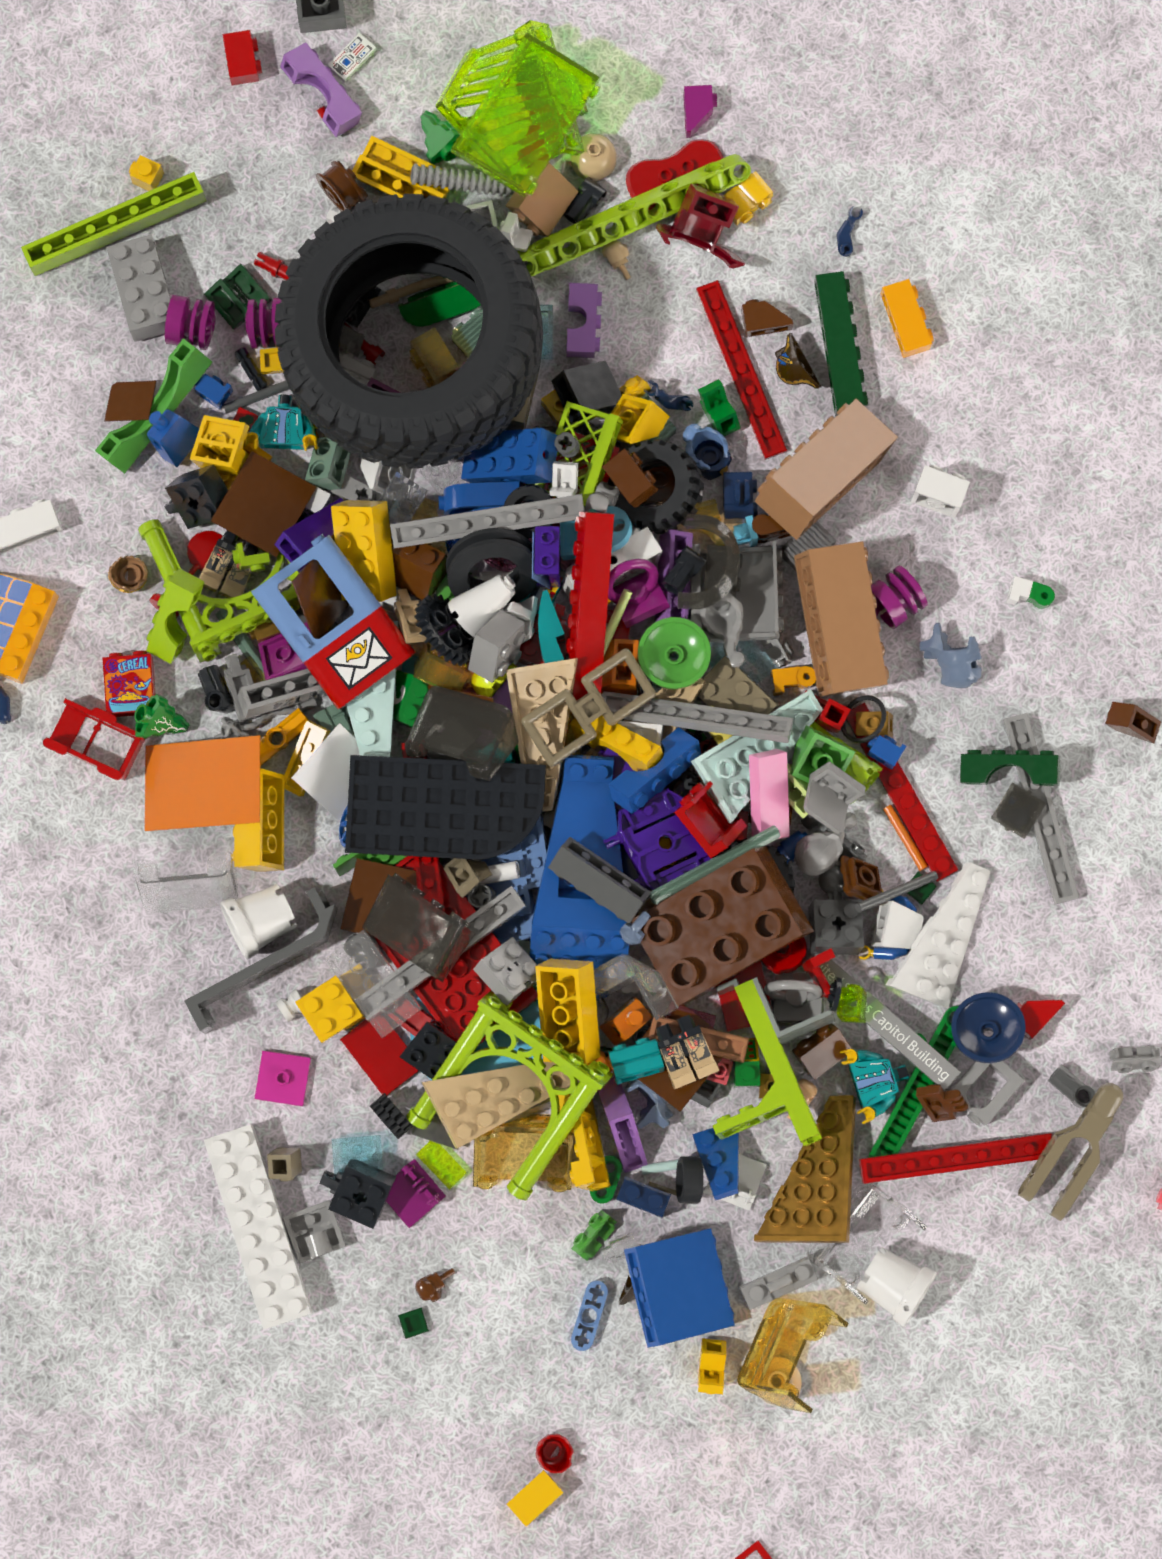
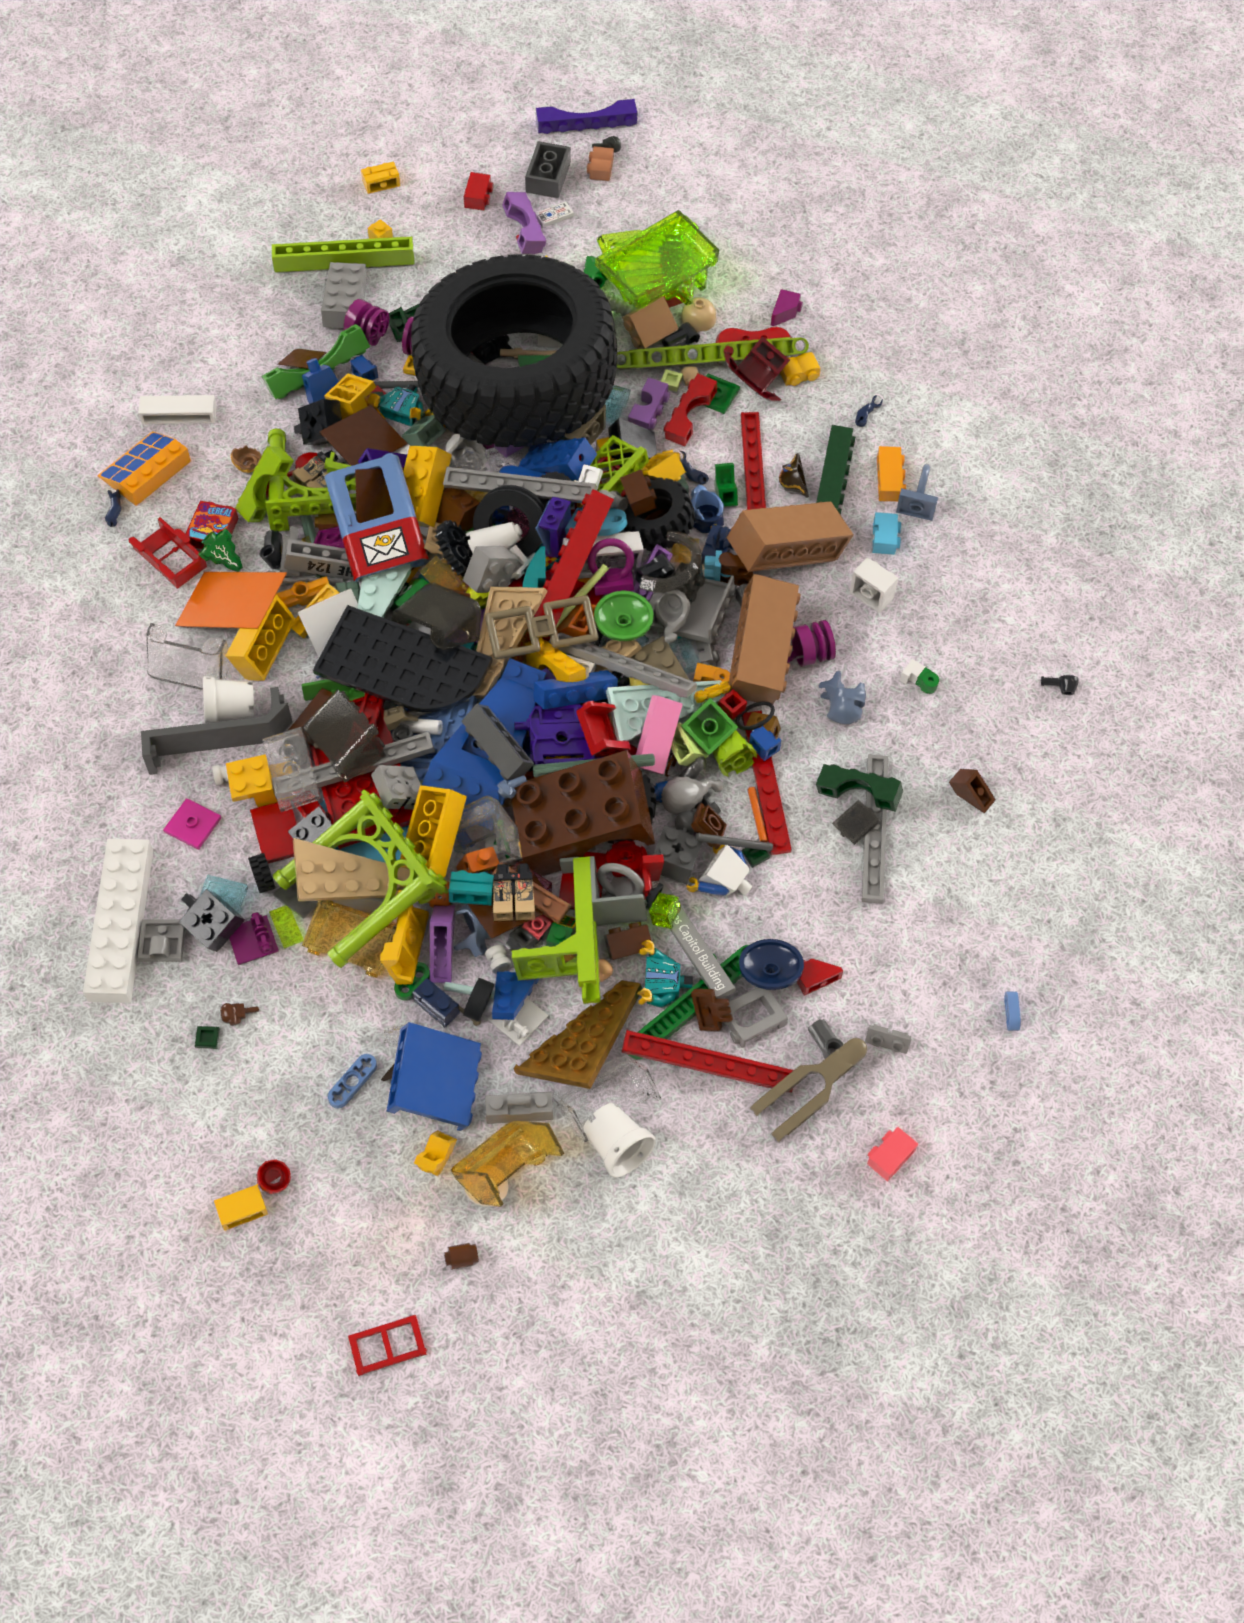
camera: 20 degrees right, 20 degrees down
(106, 78) = (380, 177): none -> yellow brick
(251, 369) = (397, 366): black axle -> none
(284, 1163) = (162, 880): dark tan brick -> none
(517, 236) = (623, 341): white bracket -> none
(570, 451) = (600, 458): dark grey bush -> none
(595, 270) = (673, 379): none -> yellowish green plate
(599, 1225) = (391, 1016): bright green hinge -> none
(640, 281) = (700, 392): none -> red arch
(656, 269) = (724, 396): none -> green tile
(689, 1121) = (498, 958): none -> white wheel
(763, 319) = (782, 443): reddish brown slope -> none
(780, 1464) = (461, 1256): none -> reddish brown brick
(808, 711) = (712, 691): none -> yellow axle
(830, 794) = (707, 748): light grey bracket -> none
(930, 409) = (885, 533): none -> medium azure brick
(940, 947) = (753, 900): white wing -> none
(953, 352) = (917, 503): none -> sand blue tile

